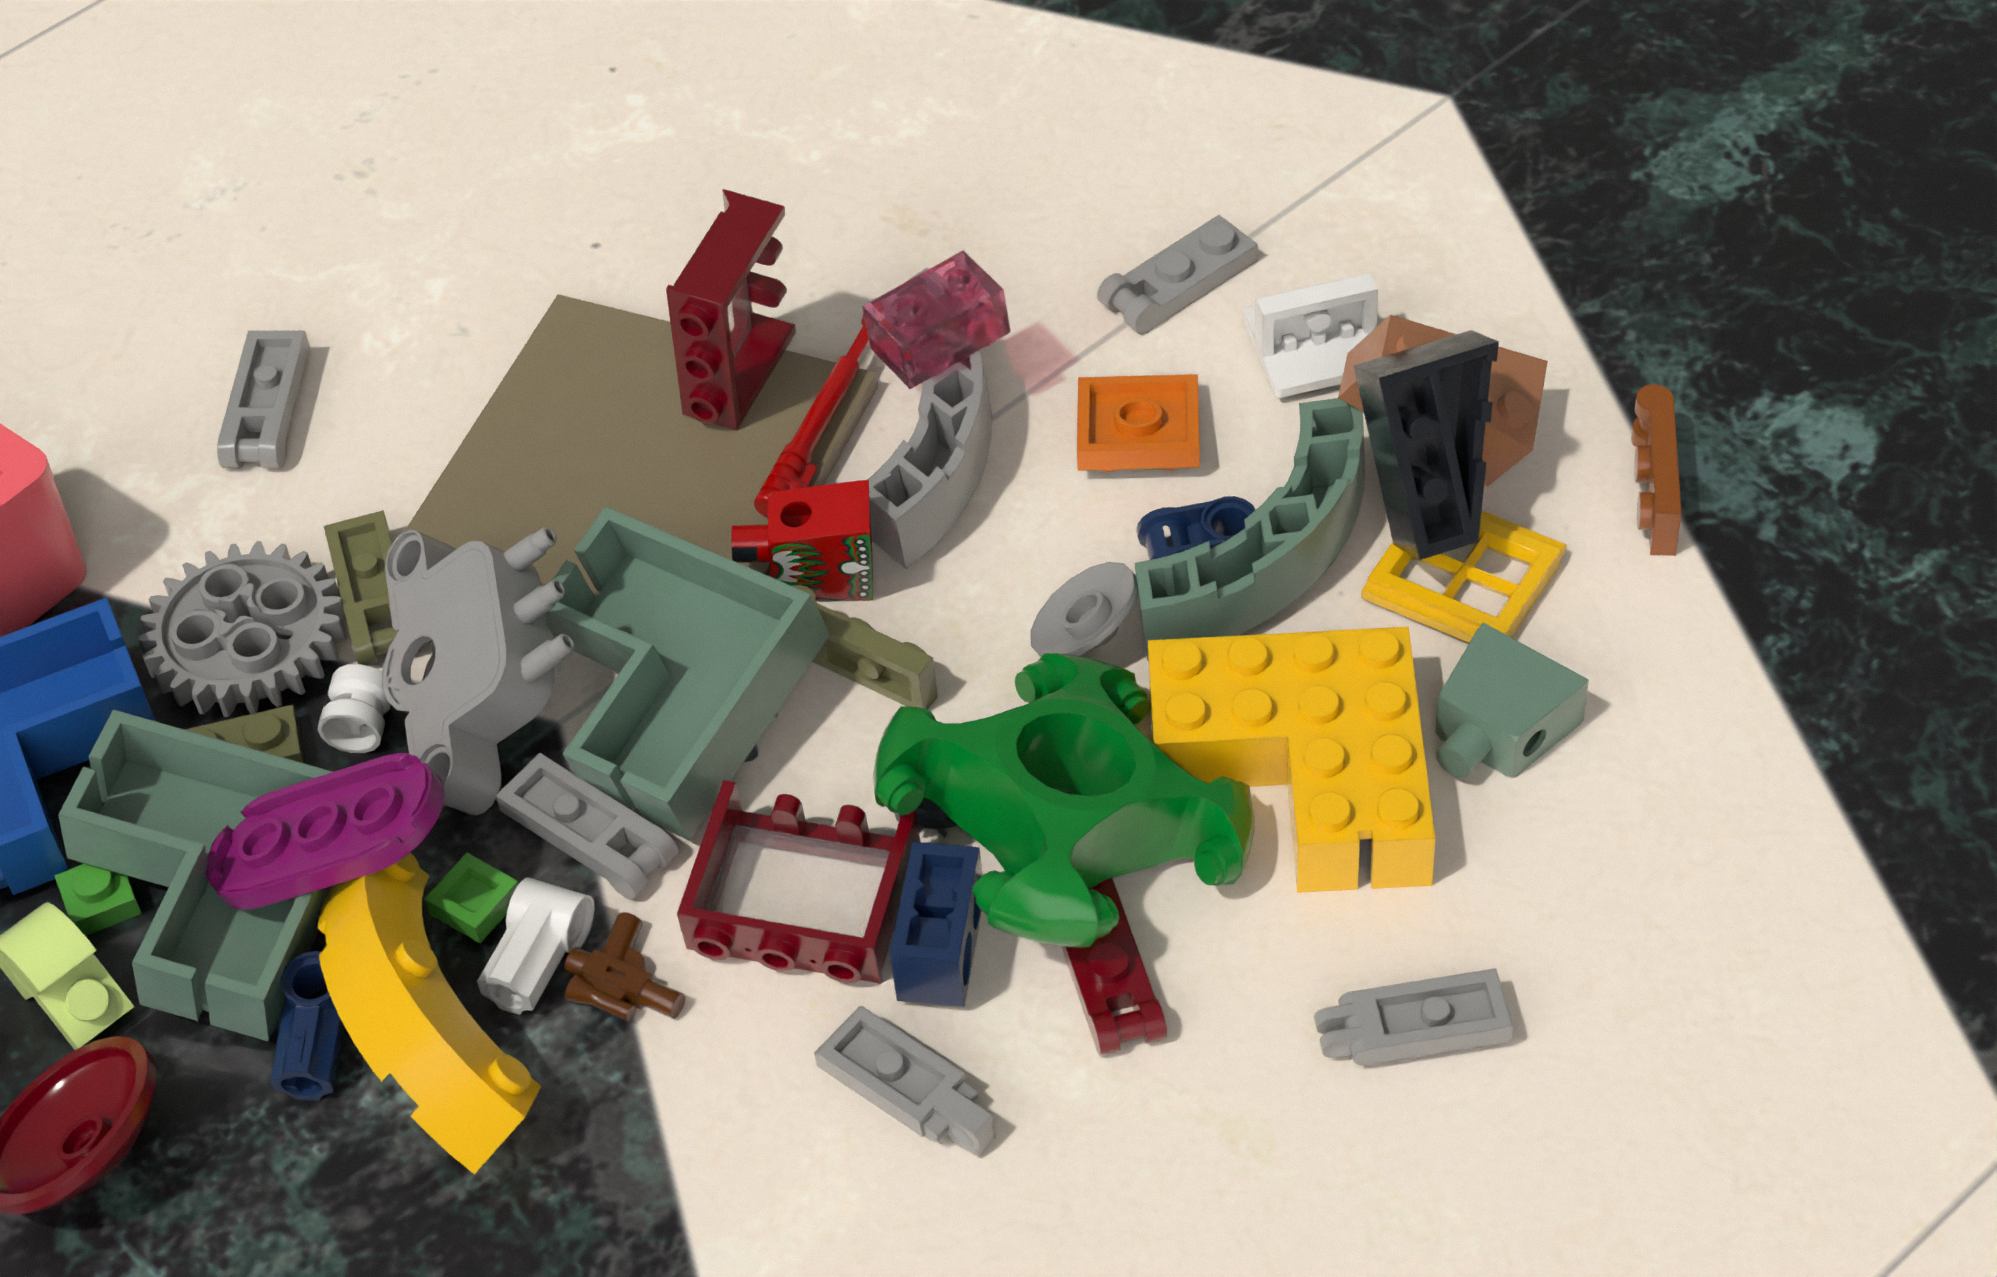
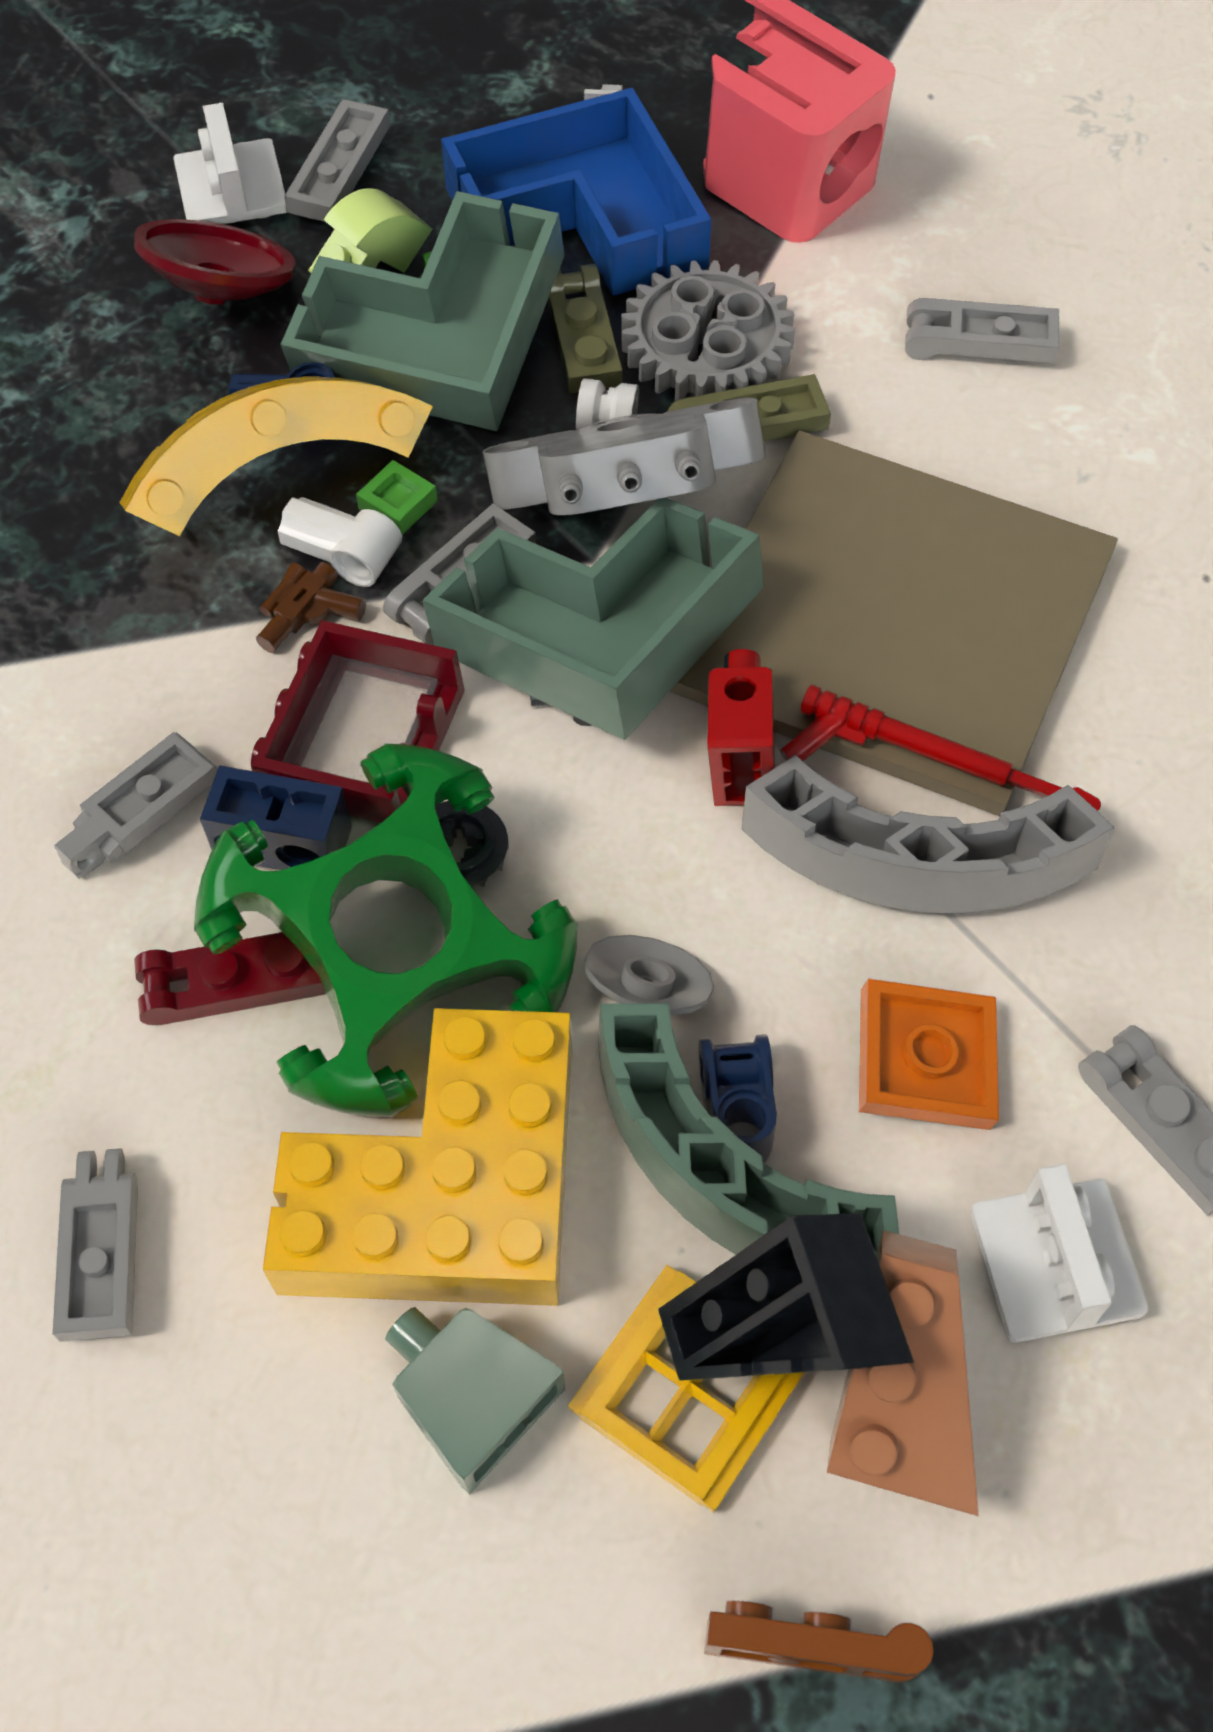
camera: 90 degrees right, 10 degrees up
(325, 831) = (426, 366): magenta tile -> none
(718, 341) = (1018, 632): dark red window -> none
(875, 659) = (628, 774): olive plate -> none
(936, 319) = (1005, 817): clear pink brick -> none

